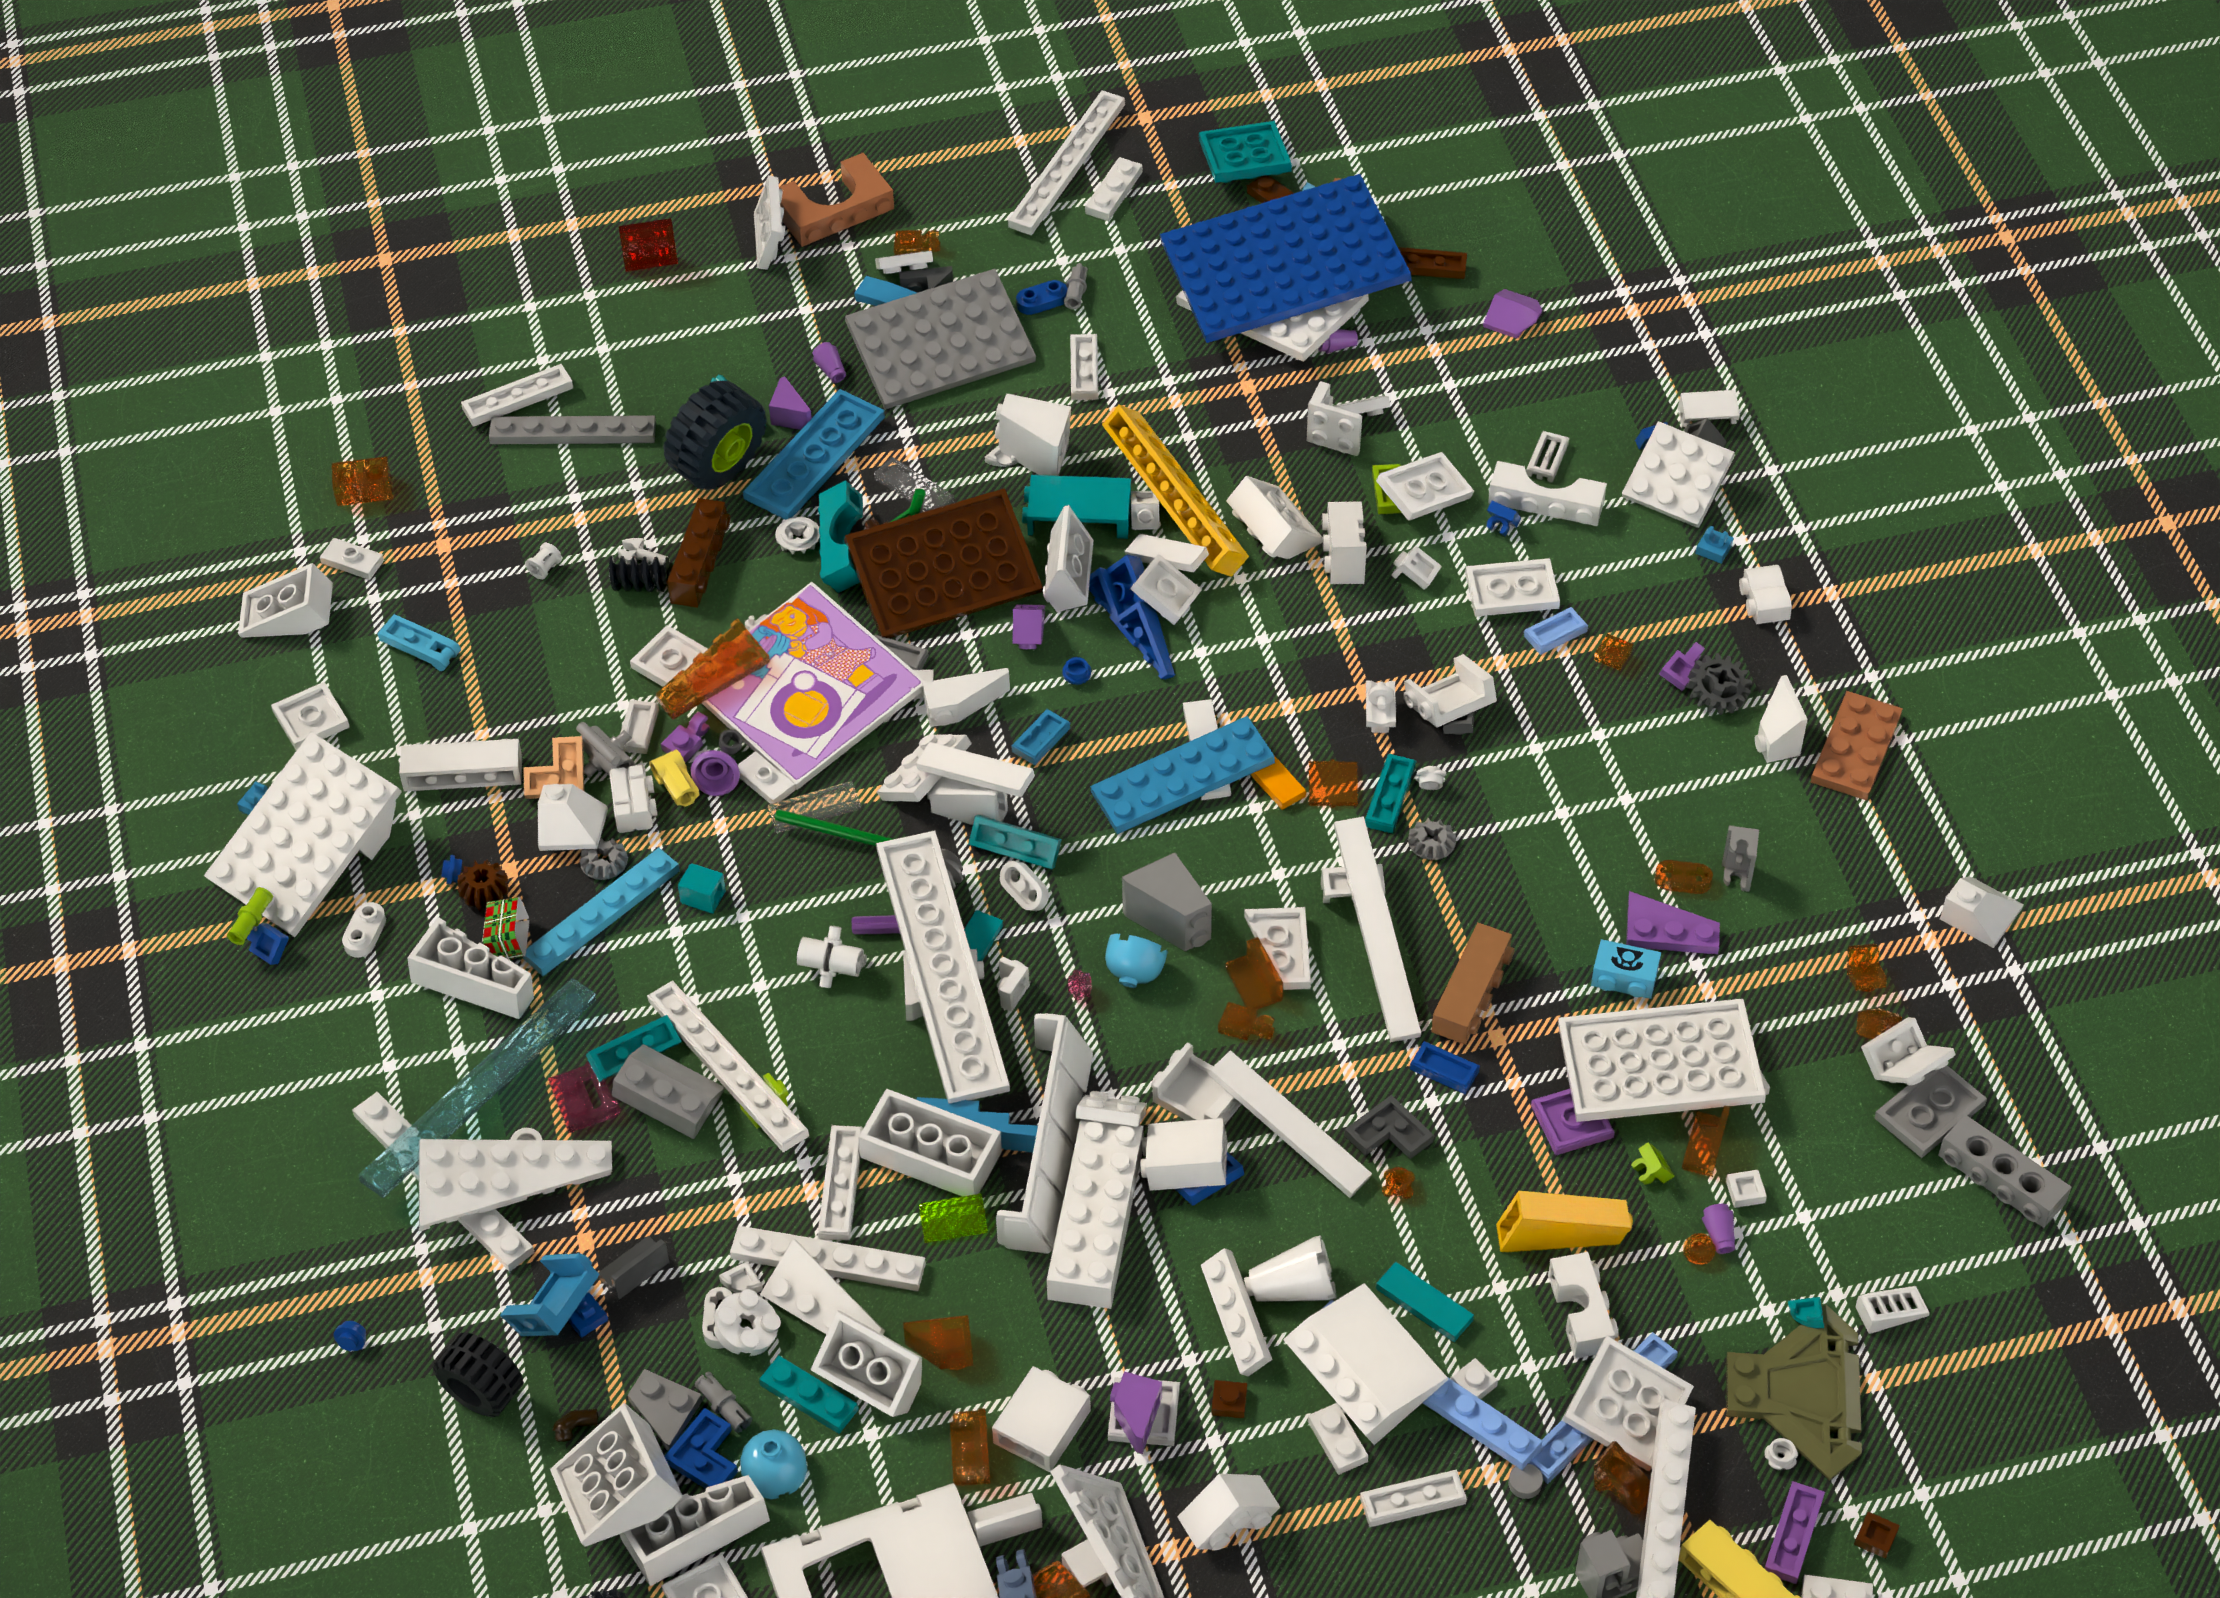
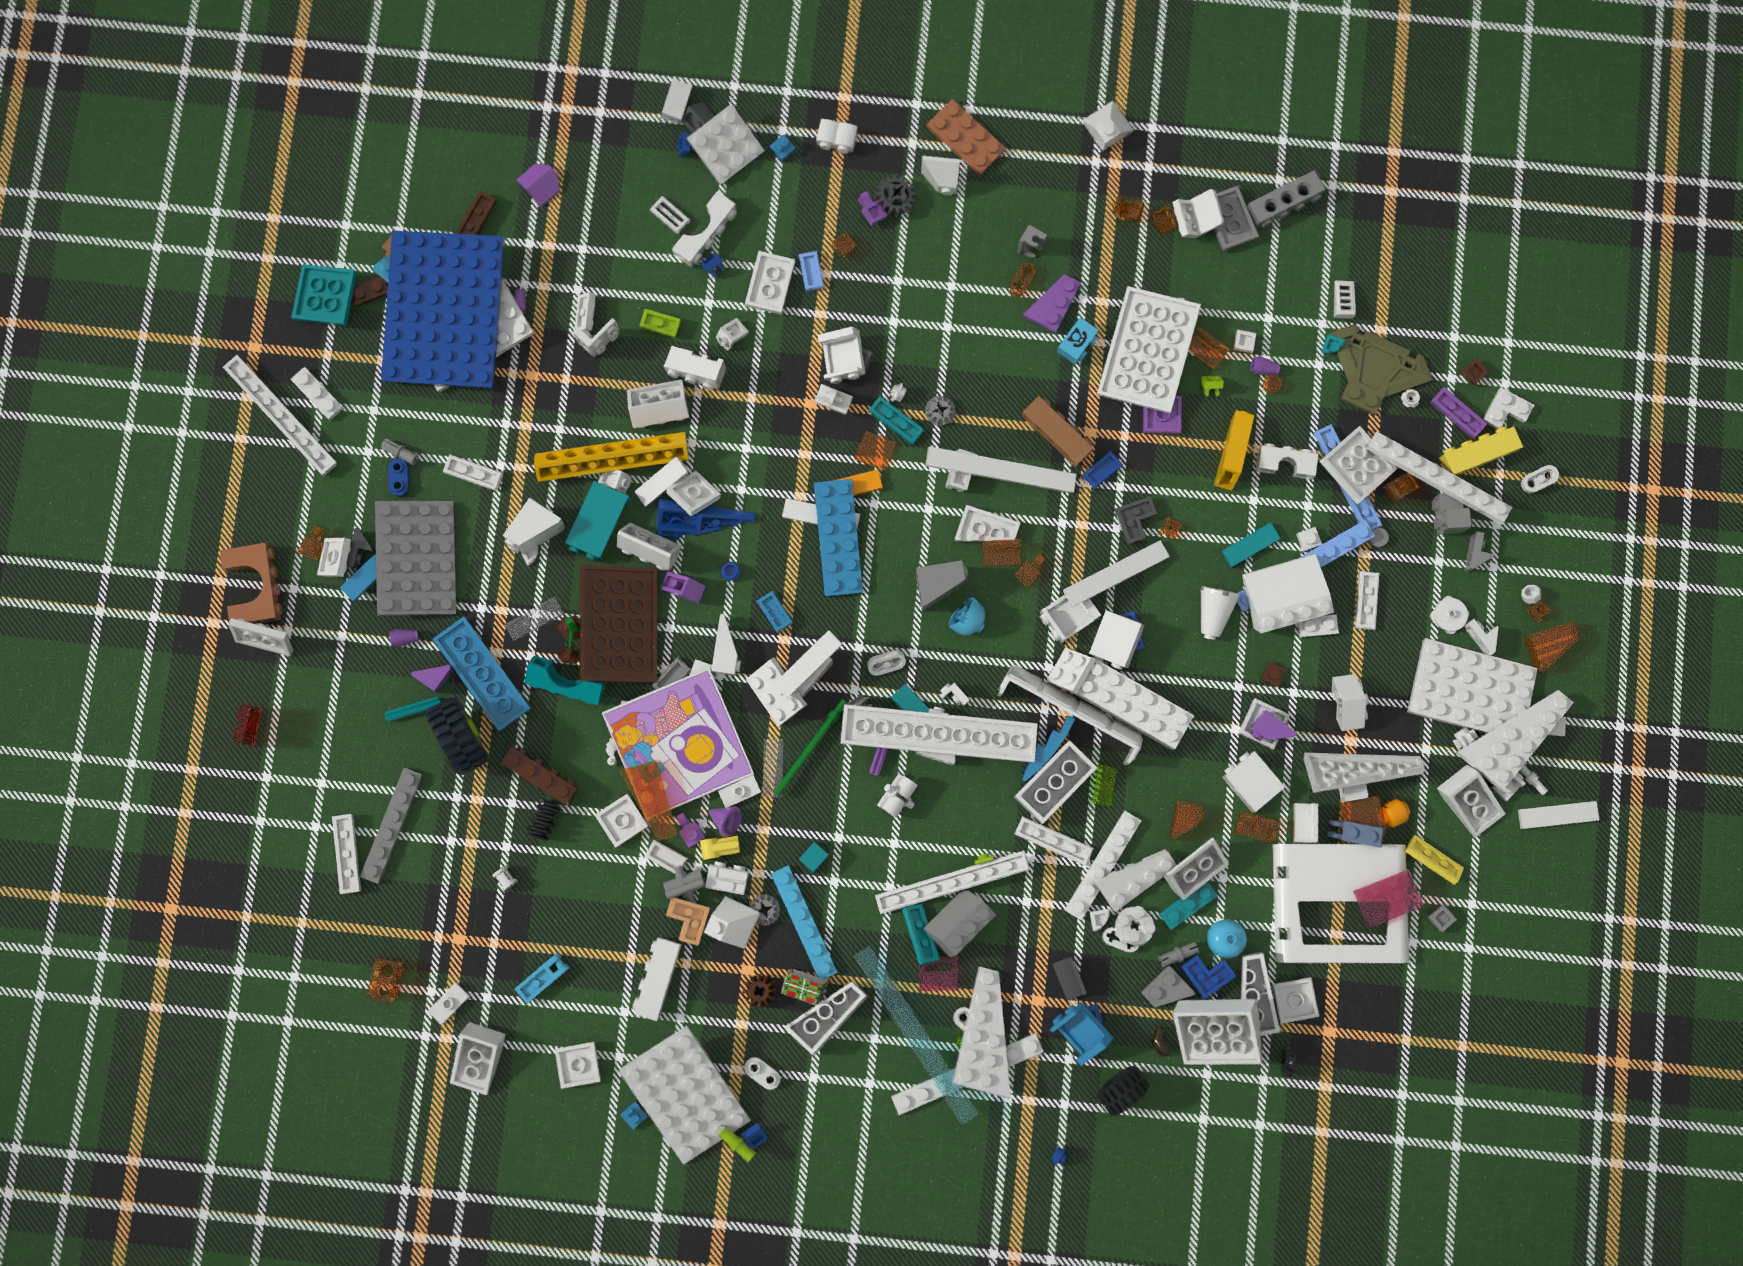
camera: 70 degrees left, 30 degrees up
(451, 869) = (739, 1006): blue plate -> none
(637, 546) = (521, 812): white bar -> none
(725, 739) = (708, 801): dark grey hinge -> none
(797, 526) = (538, 704): white gear -> none
(1015, 841) = (851, 656): teal plate -> none
(1079, 984) = (970, 655): clear pink plate -> none
(1236, 1312) = (1223, 650): white plate -> none
(1425, 486) = (672, 301): white plate -> none

